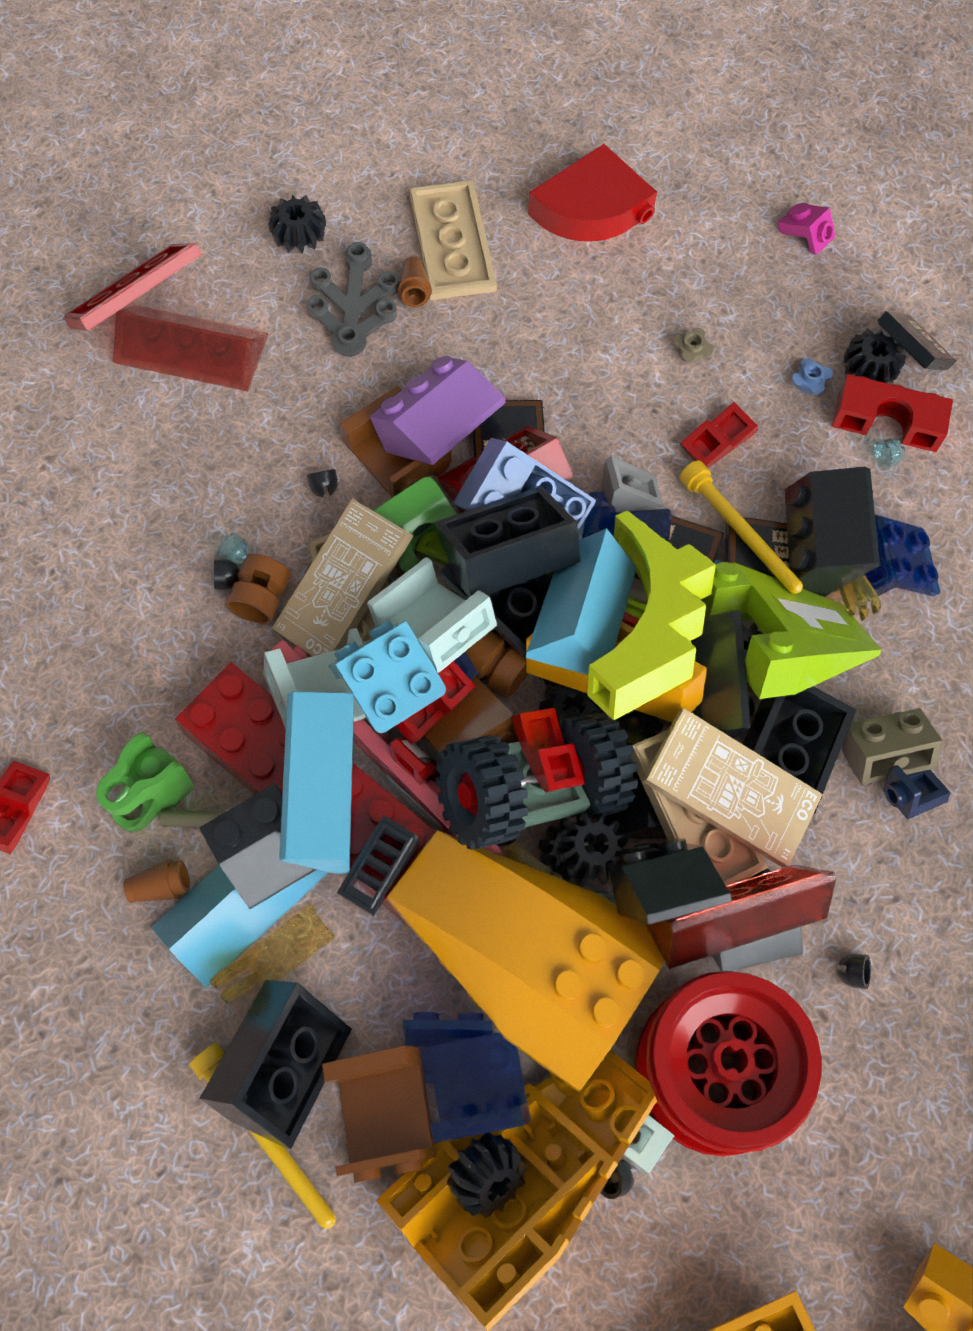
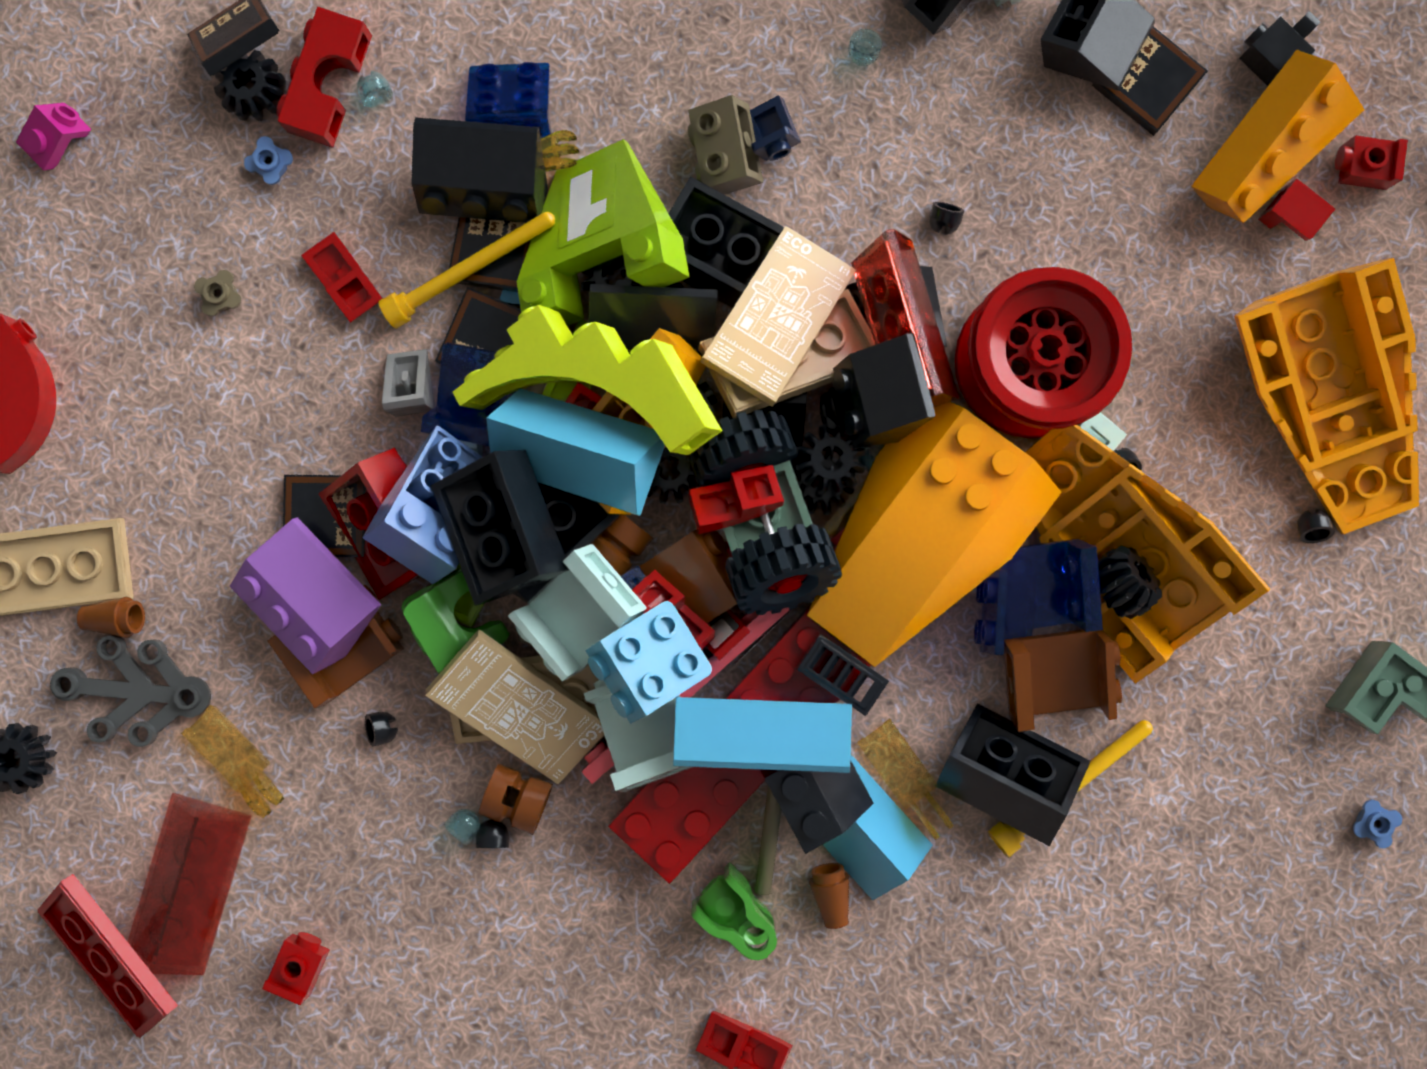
camera: 85 degrees left, 20 degrees up
(113, 425) = (288, 983): none -> red brick
(296, 376) = (234, 758): none -> clear yellow arm

